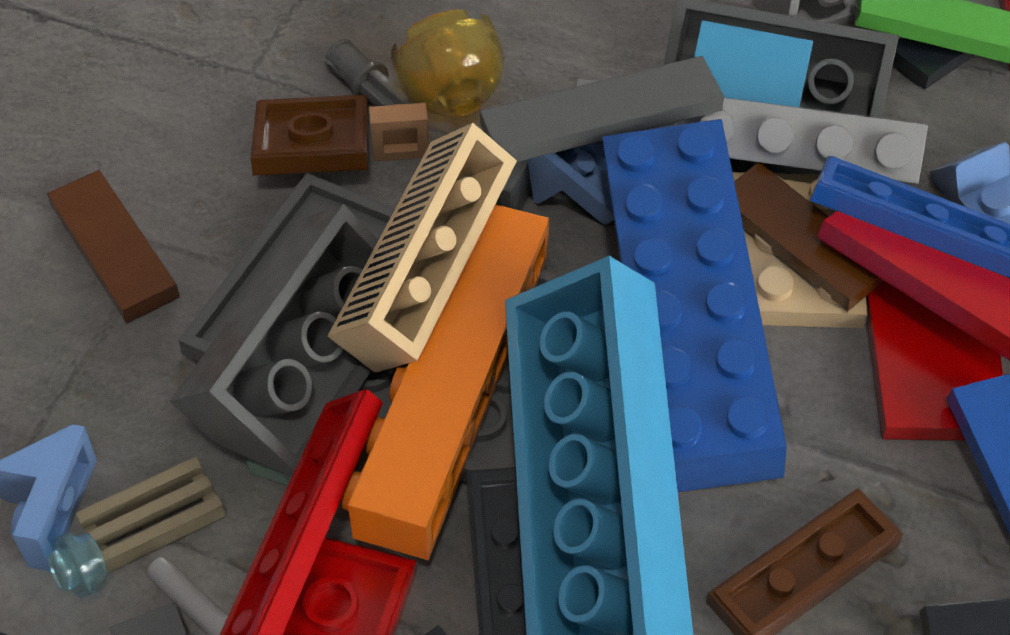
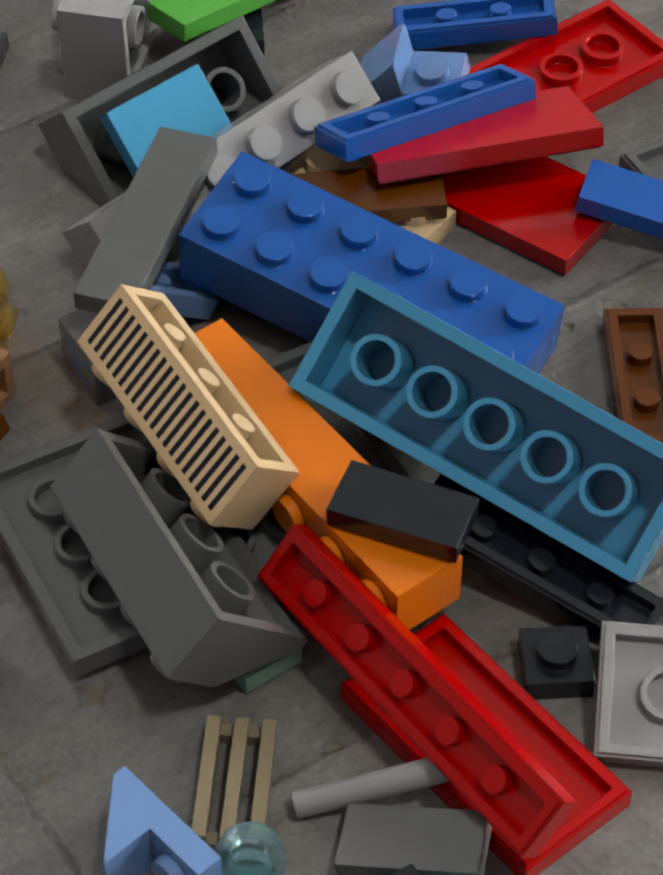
camera: 55 degrees left, 5 degrees down
(431, 456) = (403, 511): none -> black tile

